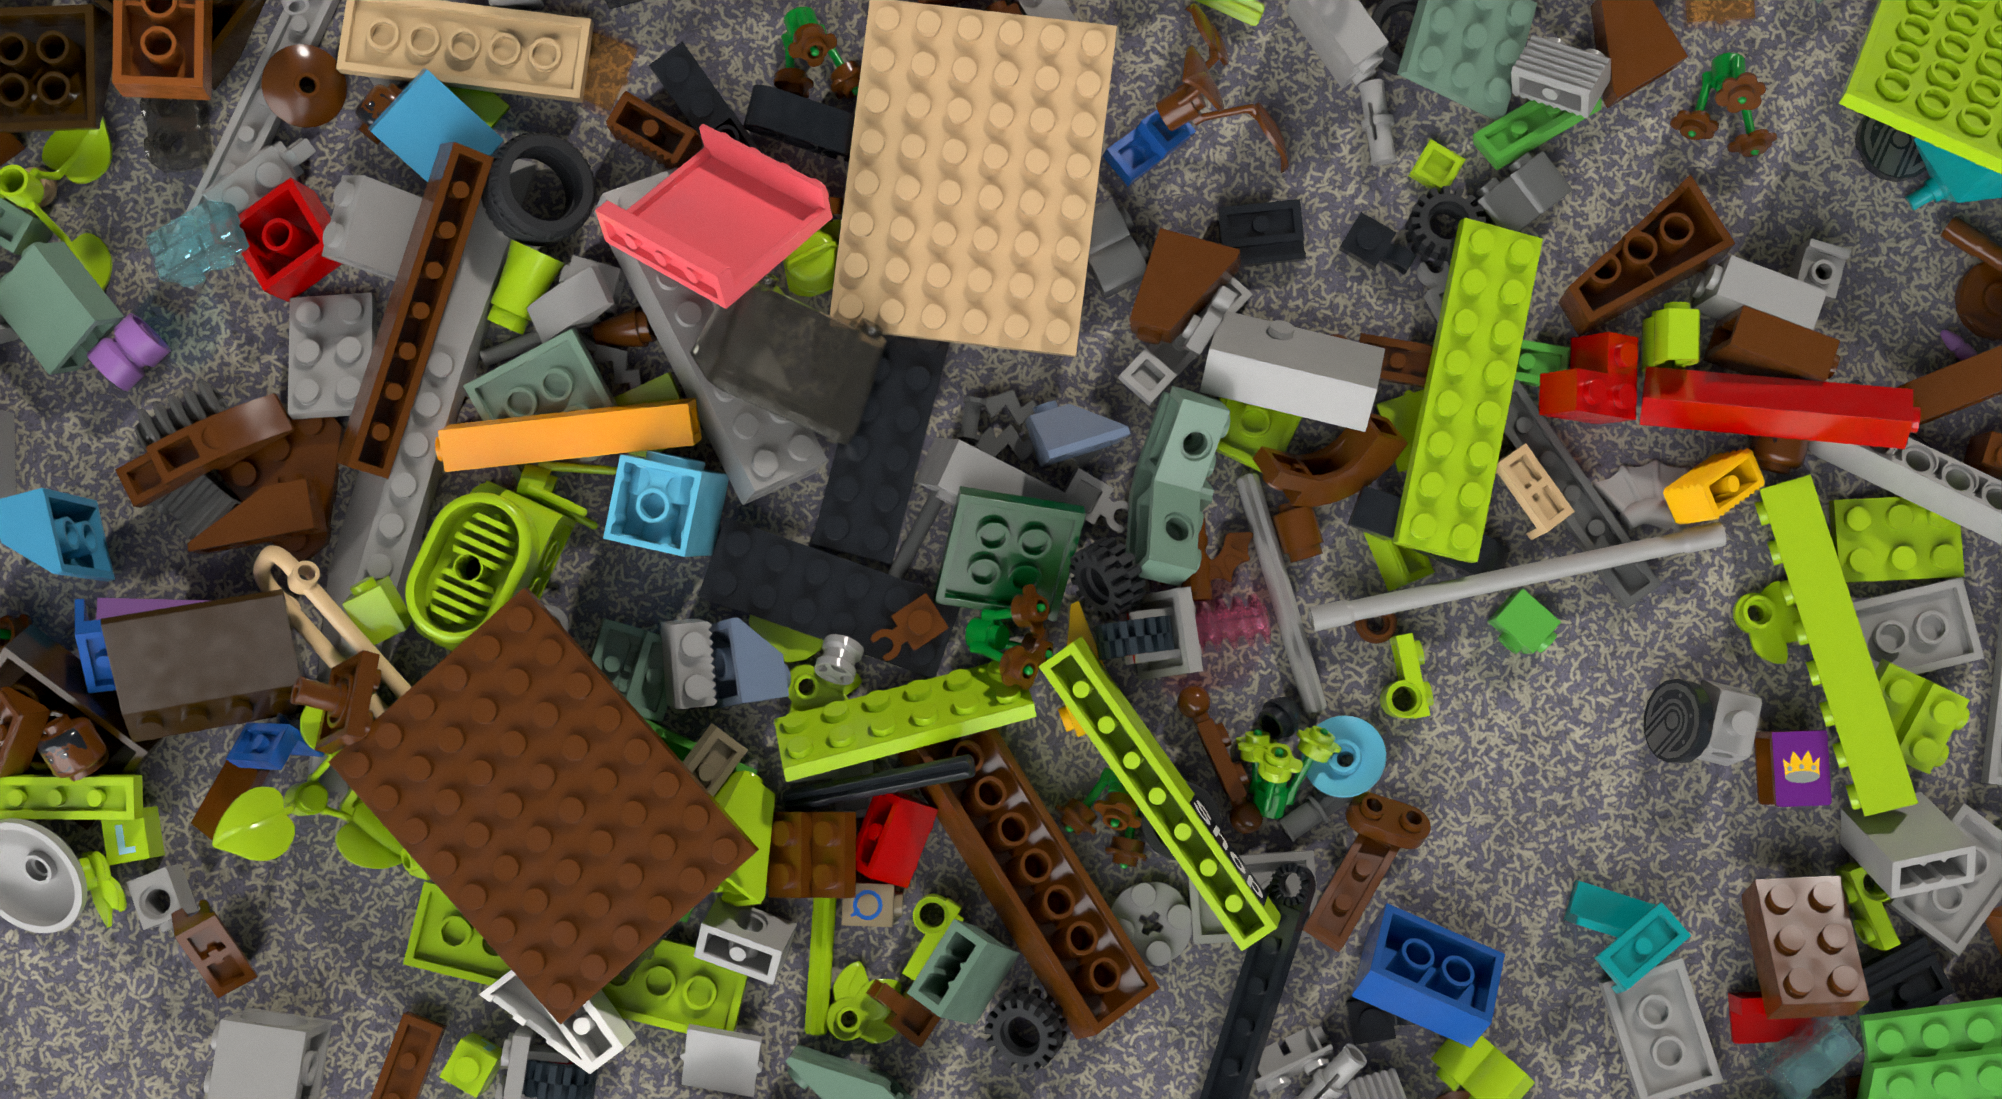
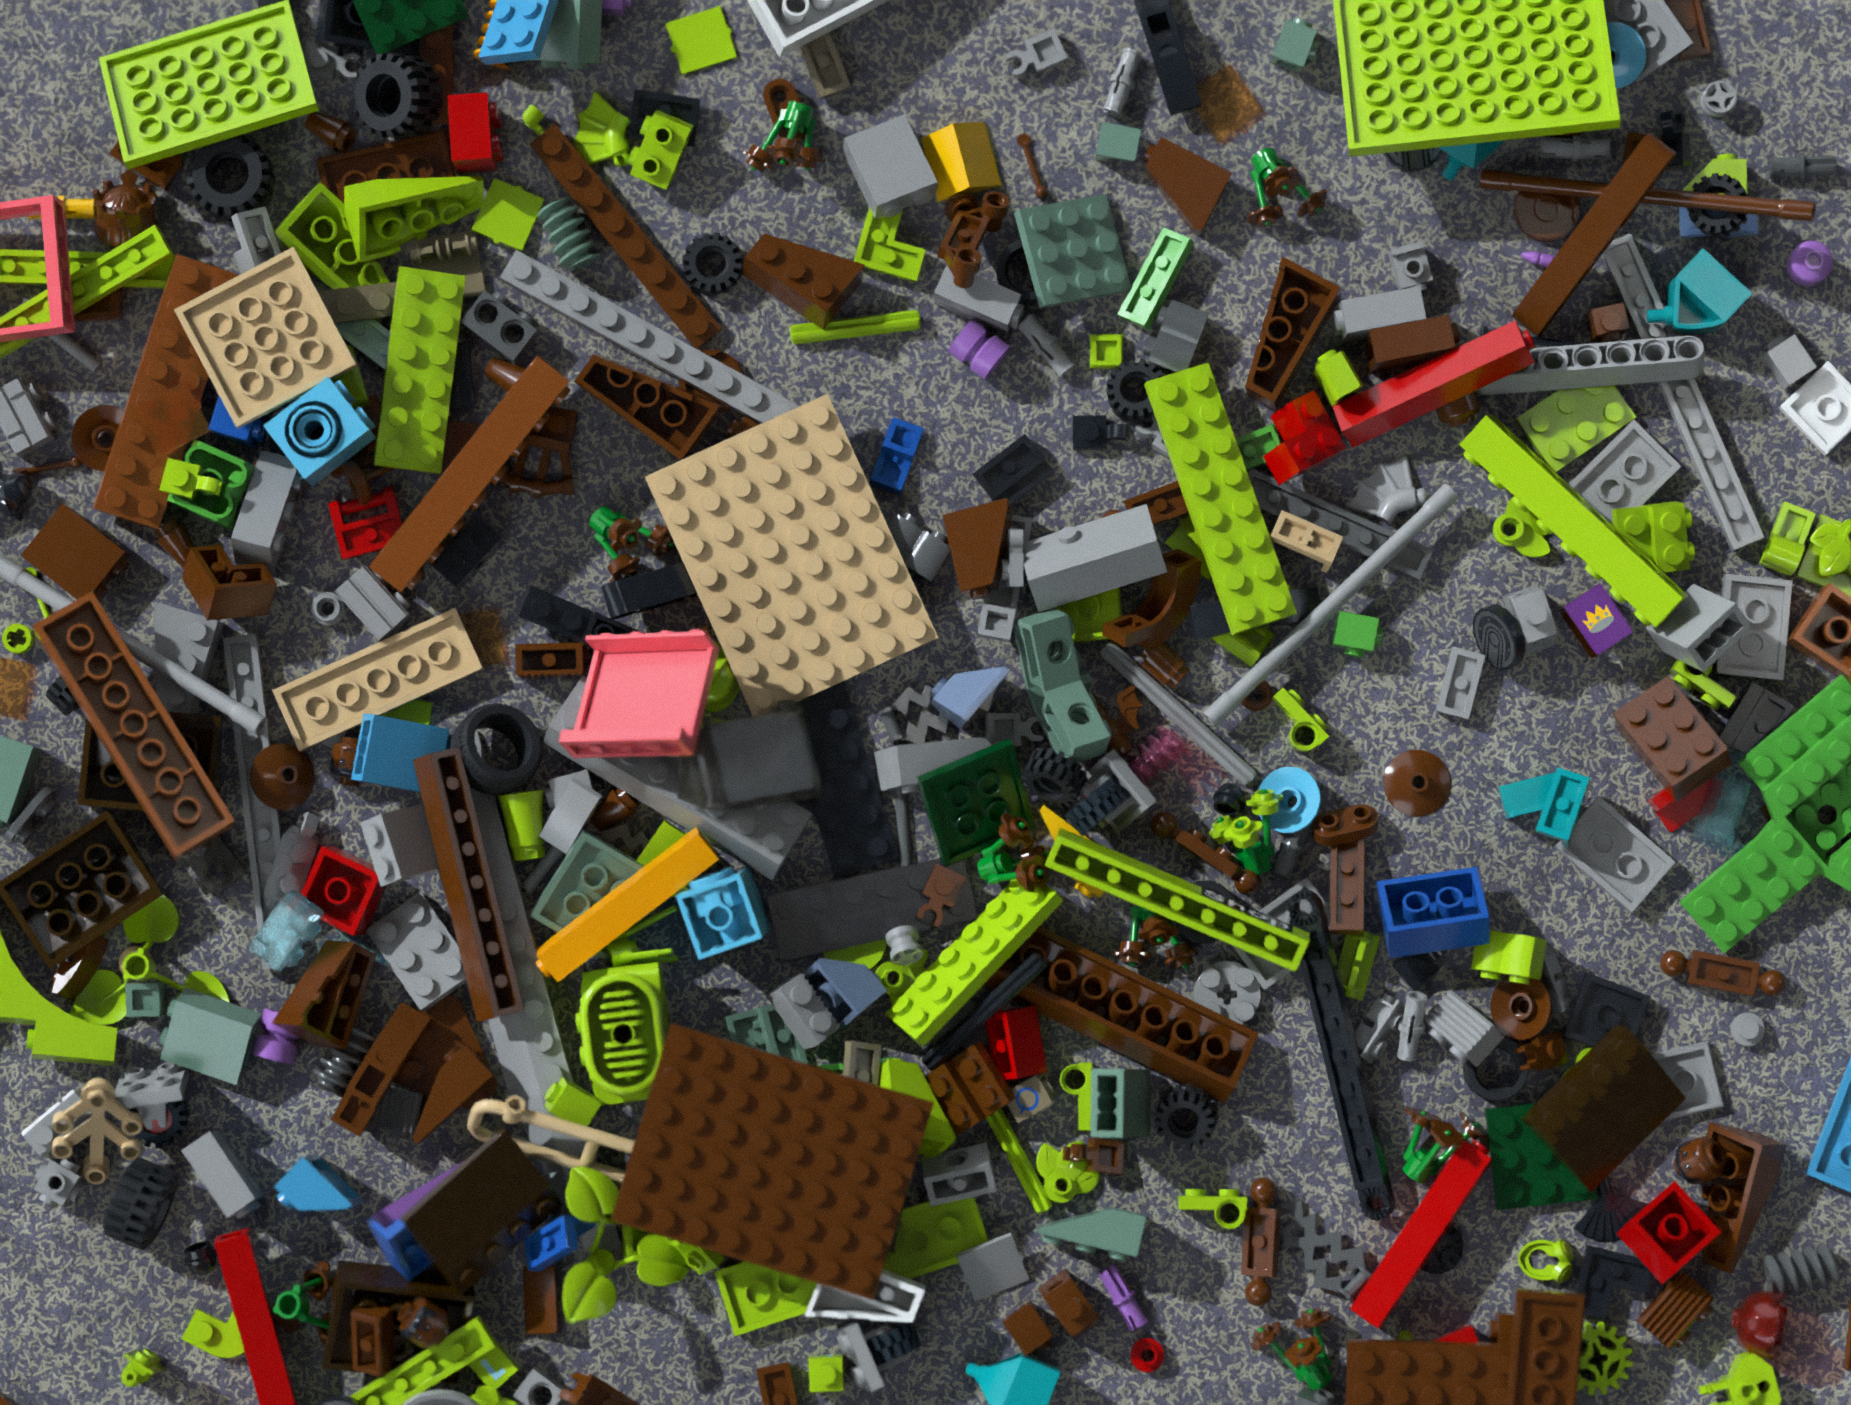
camera: 30 degrees left, 0 degrees up
(199, 338) = (328, 995): none -> reddish brown wedge
(343, 700) = (594, 1174): reddish brown plate -> none
(1187, 100) = (910, 406): reddish brown plant -> none
(1303, 77) = (979, 349): none -> medium lavender wheel
(1311, 974) = (1356, 963): none -> lime hinge
(1470, 817) = (1399, 785): none -> reddish brown dish
(1561, 75) = (1152, 238): light grey brick -> none
(1603, 744) = (1460, 683): none -> light grey plate
(1714, 487) = (1426, 462): yellow brick -> none

